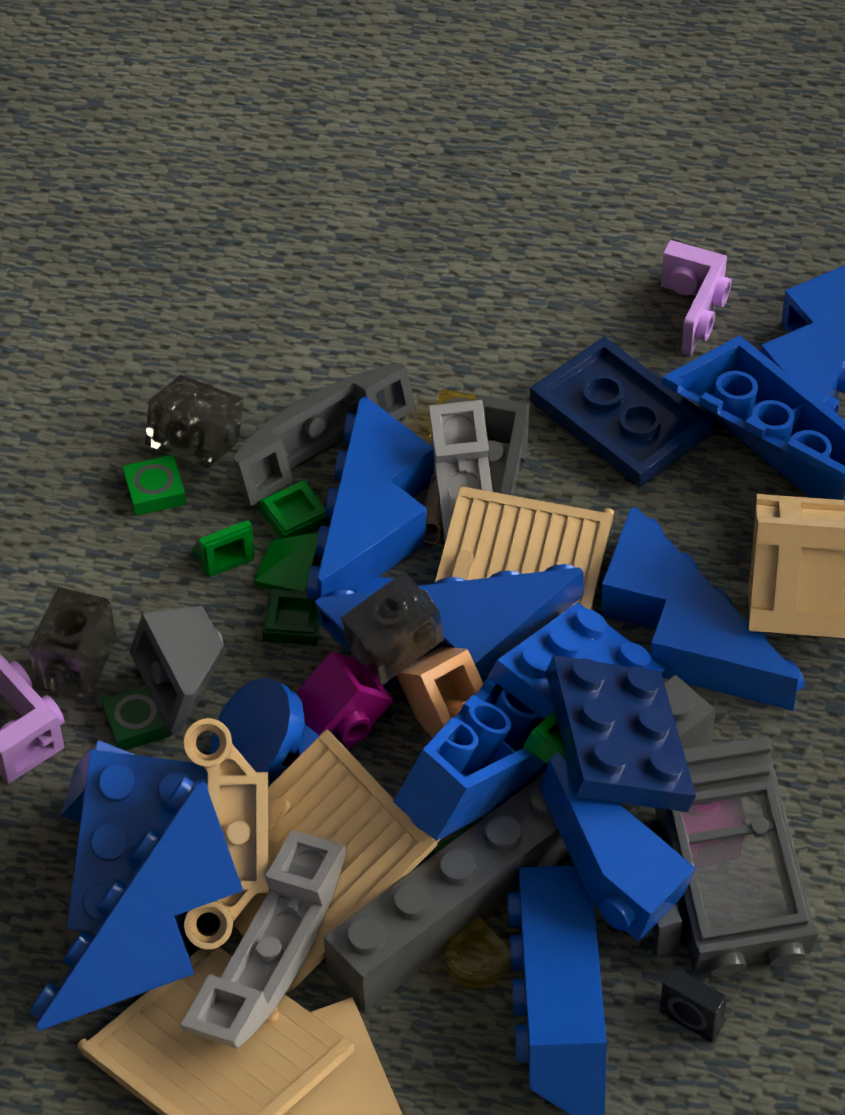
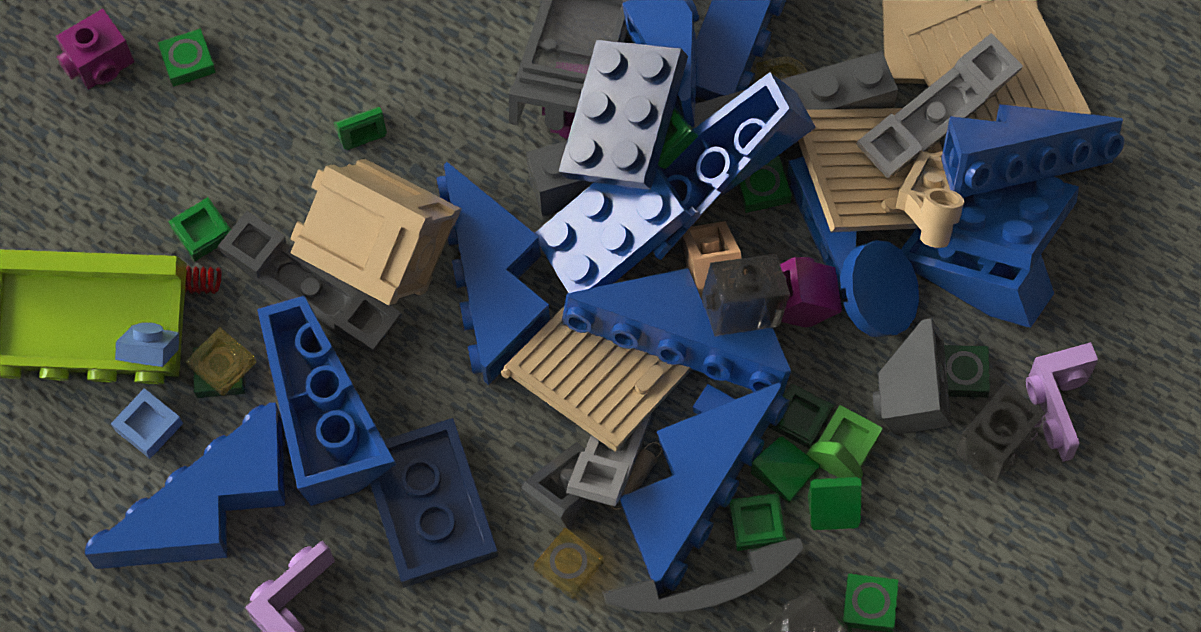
camera: 155 degrees left, 15 degrees up
(237, 596) = (845, 444): none -> bright green tile

